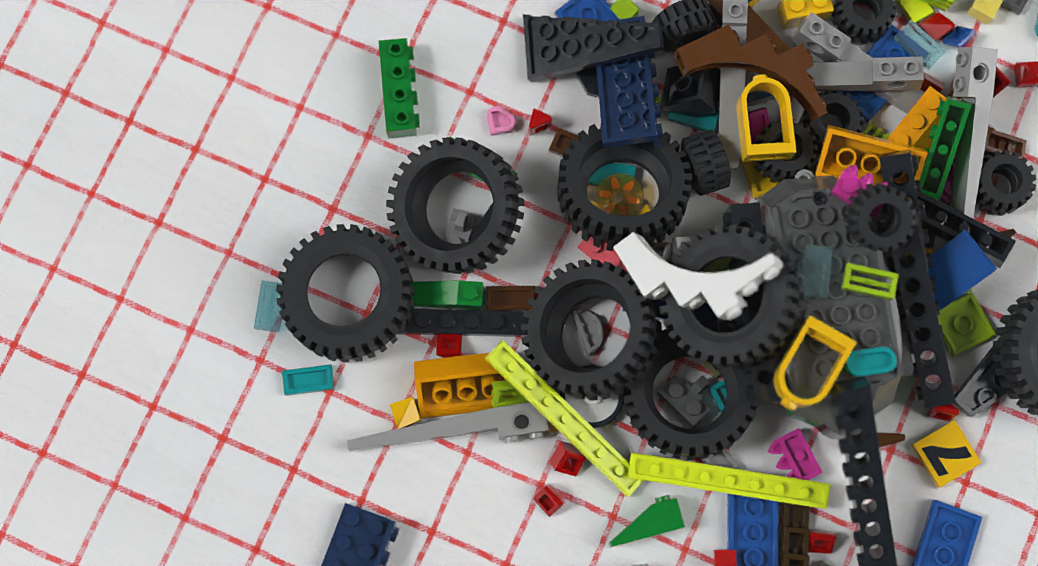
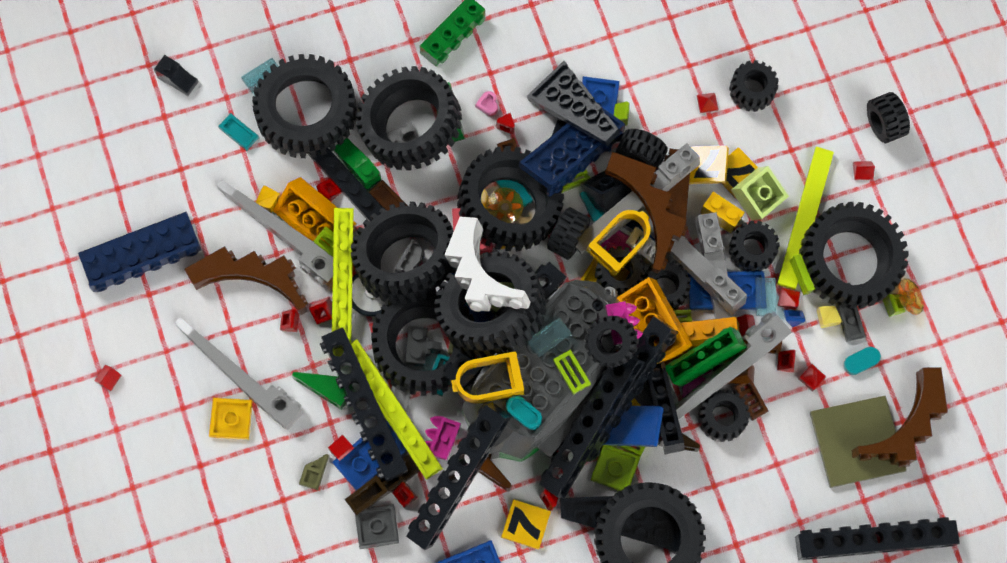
camera: 45 degrees right, 5 degrees down
(192, 390) = (175, 75): none -> black arch
(436, 516) = (221, 267): none -> reddish brown arch
(770, 108) = (647, 257): none -> white slope
(795, 526) = (339, 339): none -> black brick

